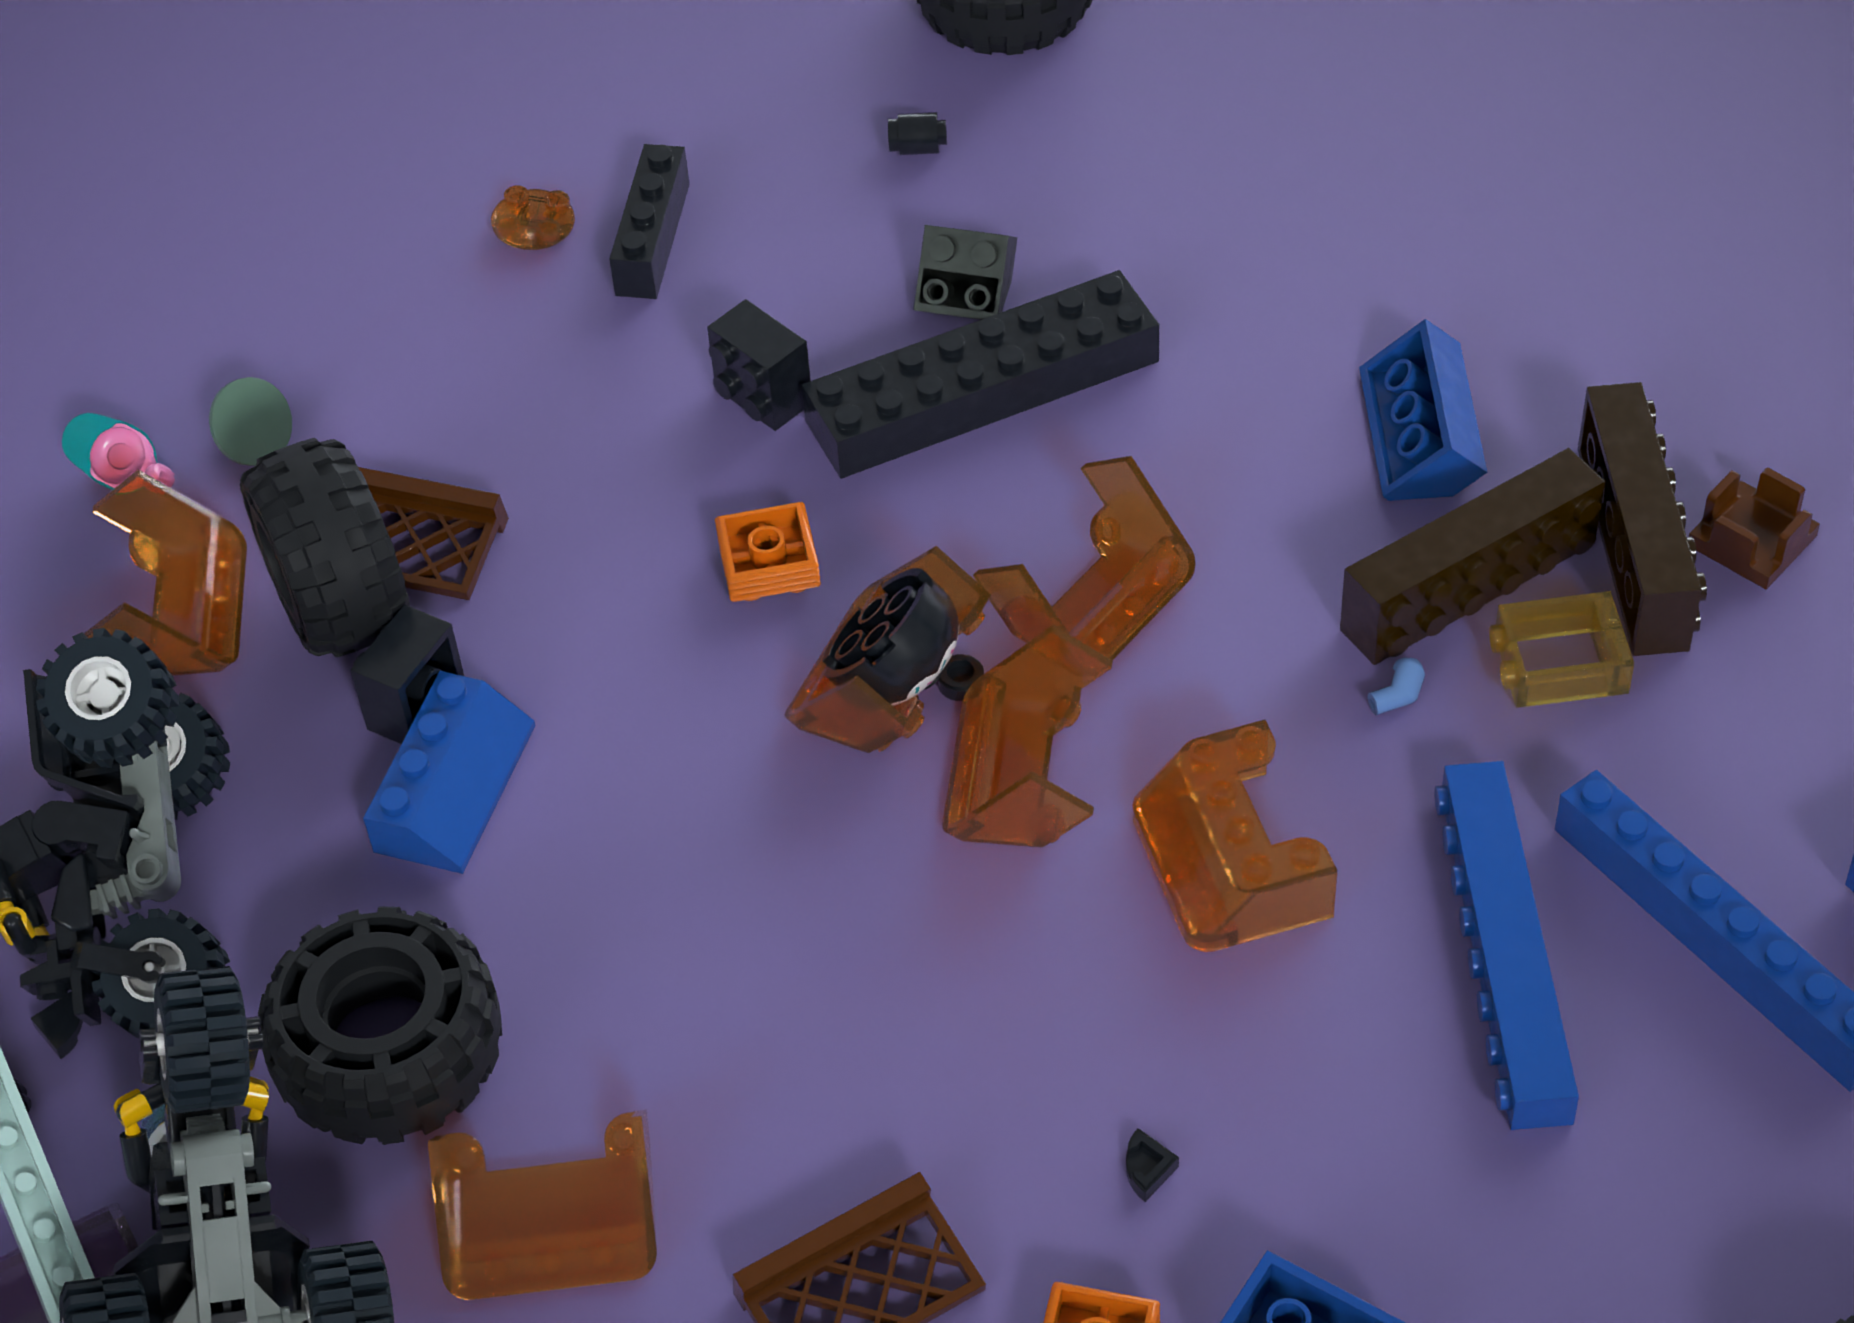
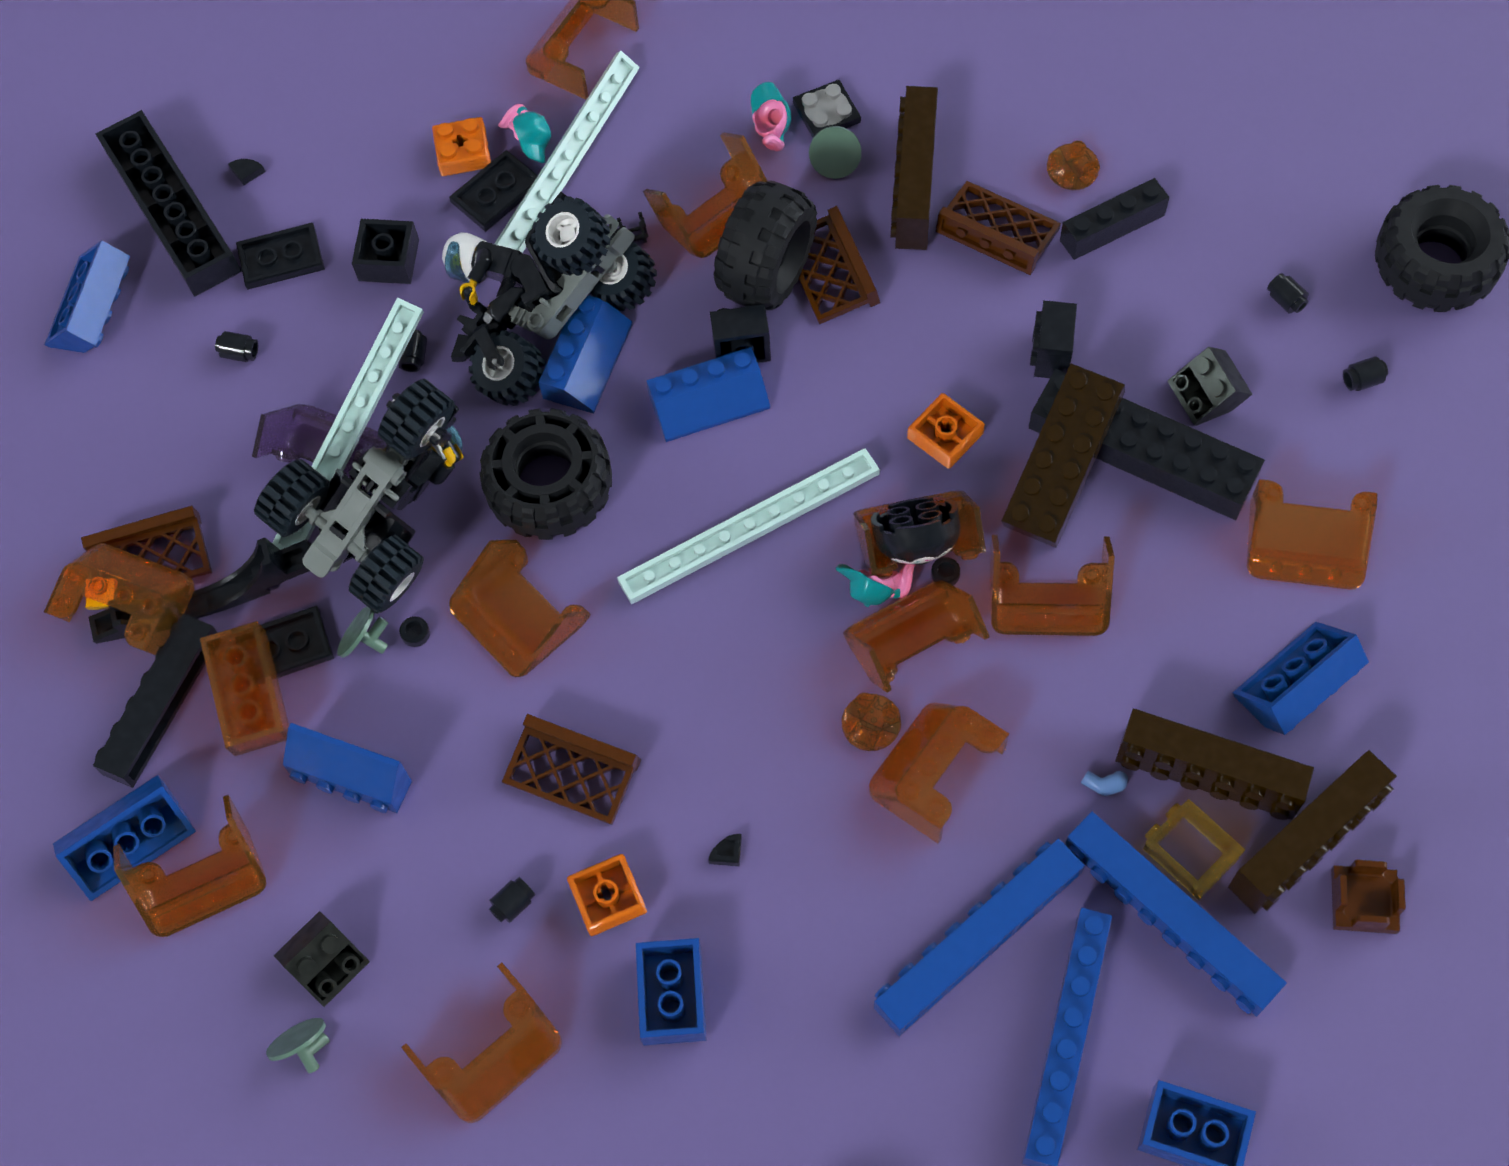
camera: 55 degrees right, 15 degrees up
(171, 402) = (826, 108): none -> light grey piece
(239, 883) = (585, 355): none -> blue slope
(371, 354) = (914, 168): none -> dark brown brick
(530, 357) = (989, 239): none -> reddish brown fence
(687, 856) = (748, 526): none -> light aqua plate
(917, 759) = (876, 590): none -> teal hair
(934, 439) = (1063, 455): none -> dark brown brick
(1088, 132) = (1365, 374): none -> black brick
(1102, 881) = (871, 722): none -> clear orange dish
(1252, 305) = (1309, 541): none -> clear orange windscreen
(1637, 718) = (1175, 914): none -> blue brick

